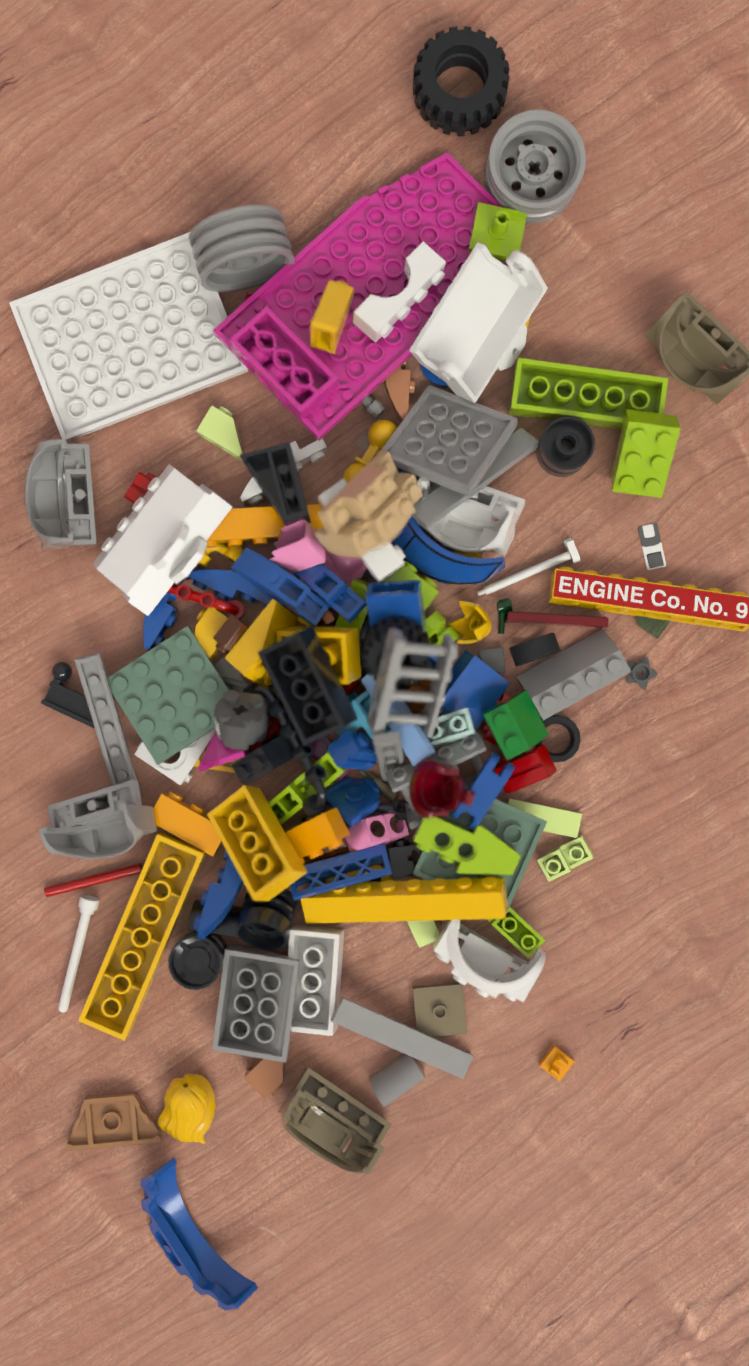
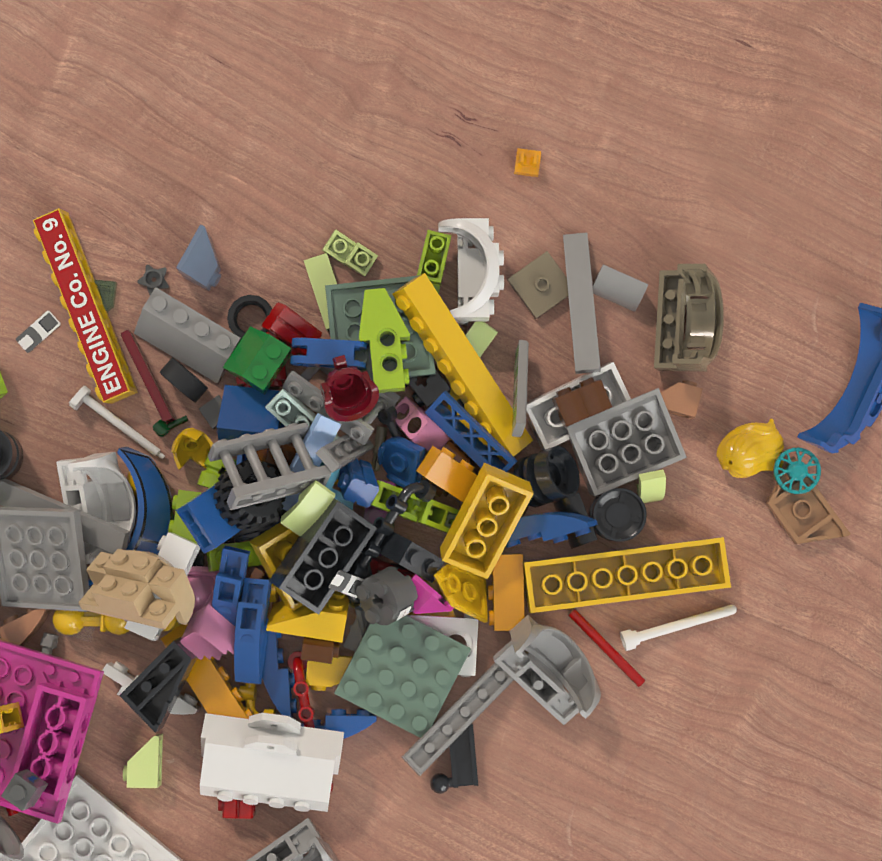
camera: 125 degrees left, 5 degrees down
(146, 1138) = (797, 470): none -> teal wheel
(205, 1004) = (651, 486): none -> yellowish green slope
(209, 787) = (464, 591): none -> yellow tile
(253, 317) = (24, 789): none -> dark grey brick
(271, 691) = (345, 583): none -> sticker
(312, 987) = (582, 402): none -> reddish brown brick
(354, 698) = (308, 509): none -> yellowish green slope
(356, 939) = (520, 388): none -> light grey tile
(632, 723) = (200, 261): none -> sand blue slope

